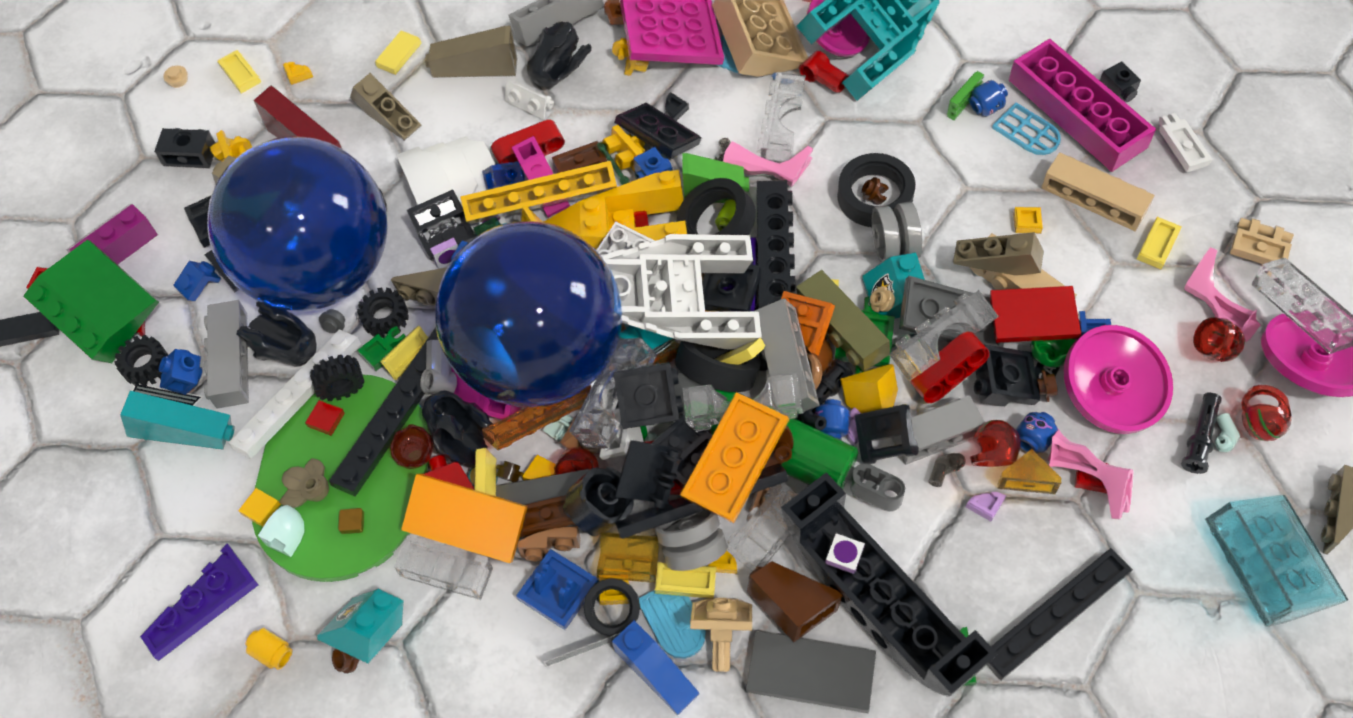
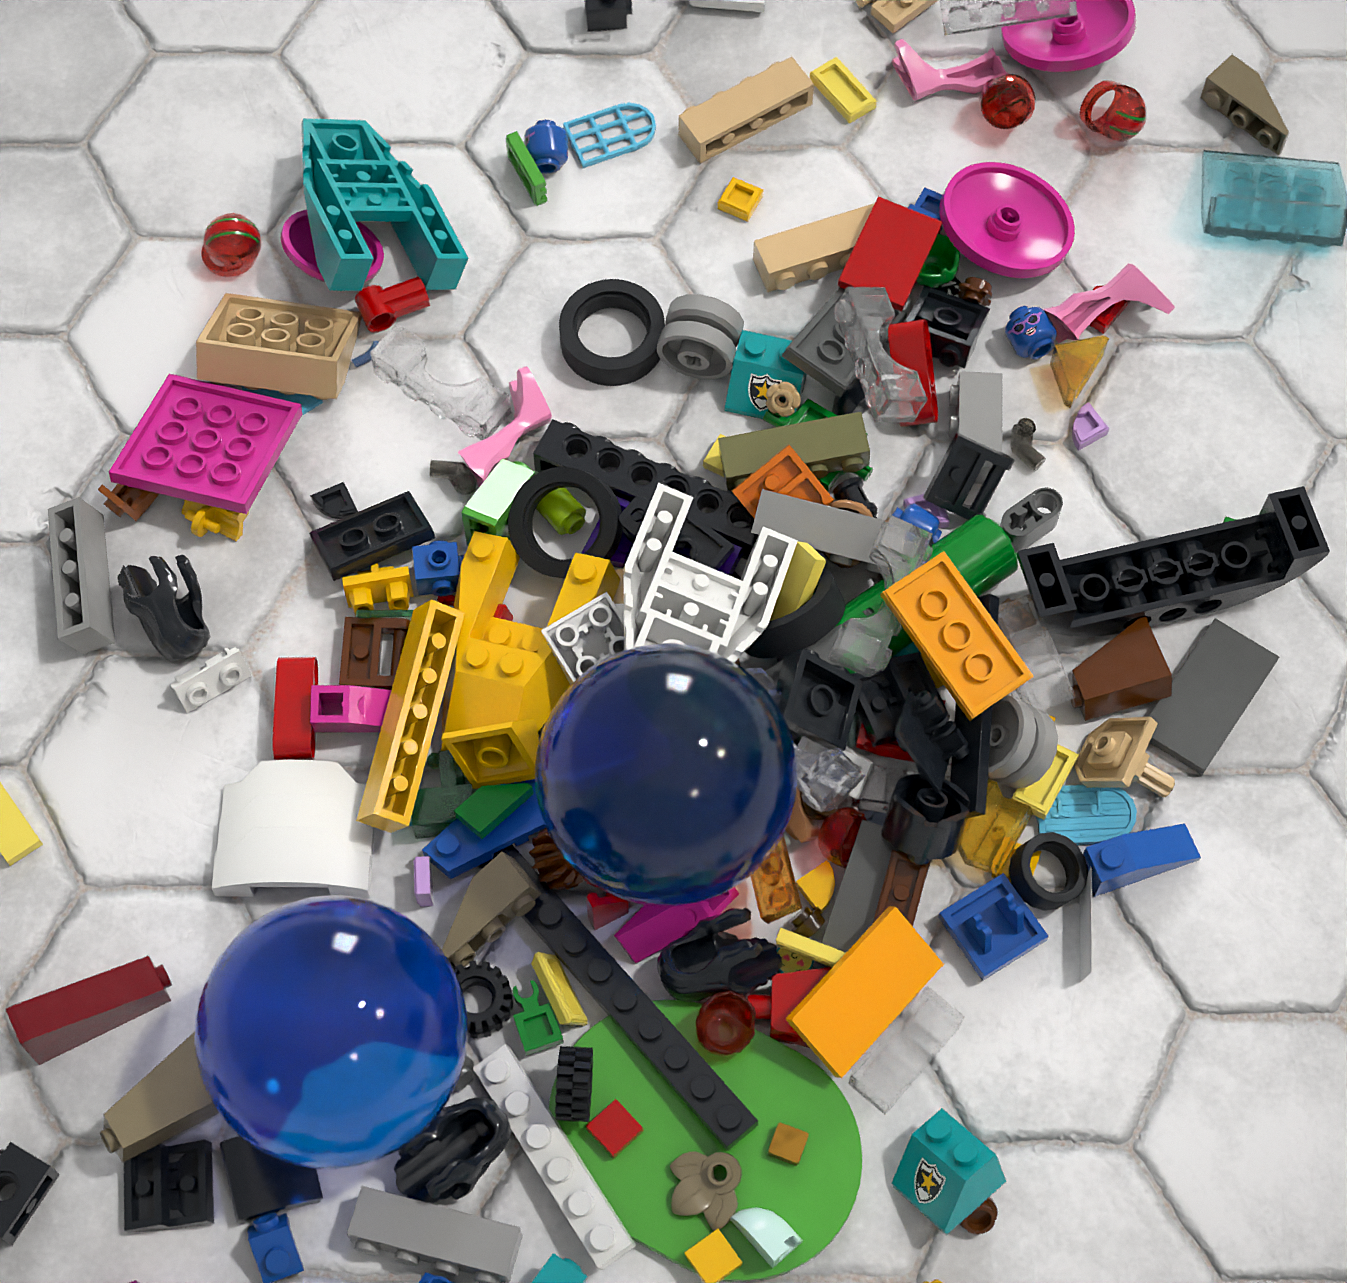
camera: 70 degrees left, 5 degrees up
(229, 147) = (44, 1130): yellow hips -> none
(384, 107) = (104, 878): dark tan slope -> none
(438, 372) = (620, 947): light grey piece -> none
(440, 221) = (378, 865): black slope -> none
(474, 55) = (93, 716): dark tan slope -> none
(502, 175) = (350, 756): clear blue brick -> none
(538, 545) = (929, 918): medium nougat slope -> none
(845, 553) = (1108, 585): tile -> none
(870, 389) = (894, 473): yellow slope -> none
(872, 189) = (610, 336): reddish brown plate -> none
(998, 444) = (1031, 378): clear red helmet -> none
(1003, 254) = (796, 245): dark tan slope -> none
(1057, 612) = (1239, 416): black tile -> none
(1081, 105) = (617, 58): dark pink brick -> none
(1201, 442) = (1113, 188): black pin -> none
(1229, 434) = (1114, 159): light aqua arm -> none

